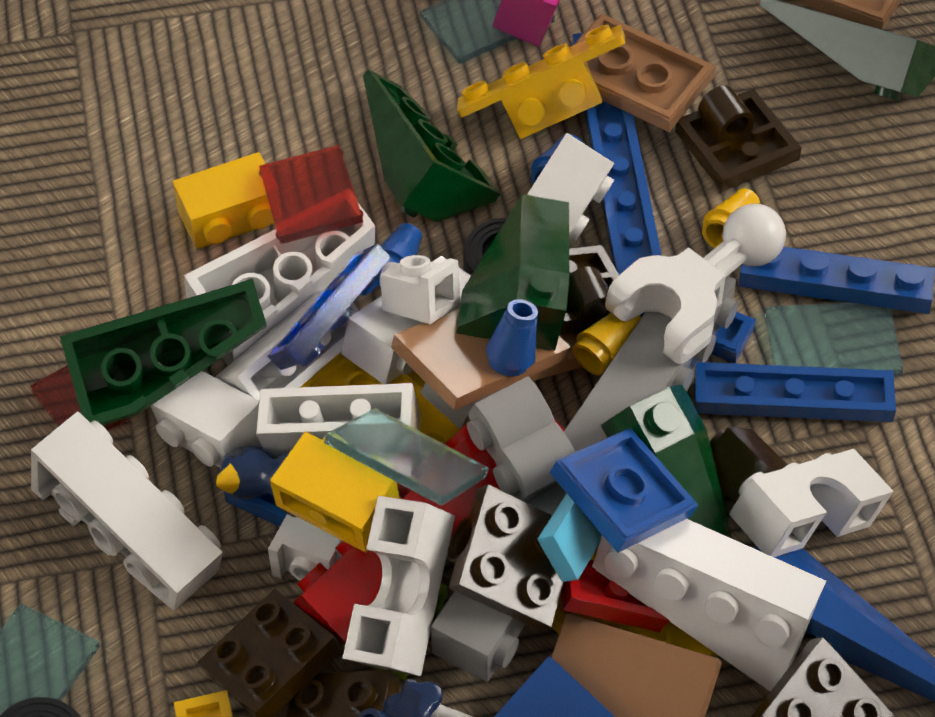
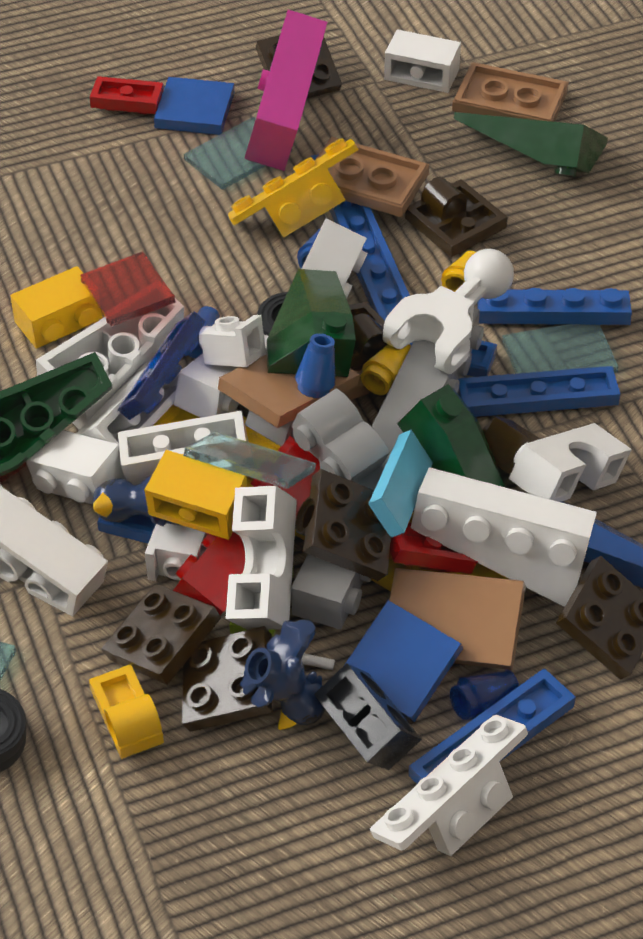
camera: 10 degrees left, 5 degrees down
(420, 158) = (208, 261): dark green wedge -> none
(623, 489) = (428, 461): blue tile -> none

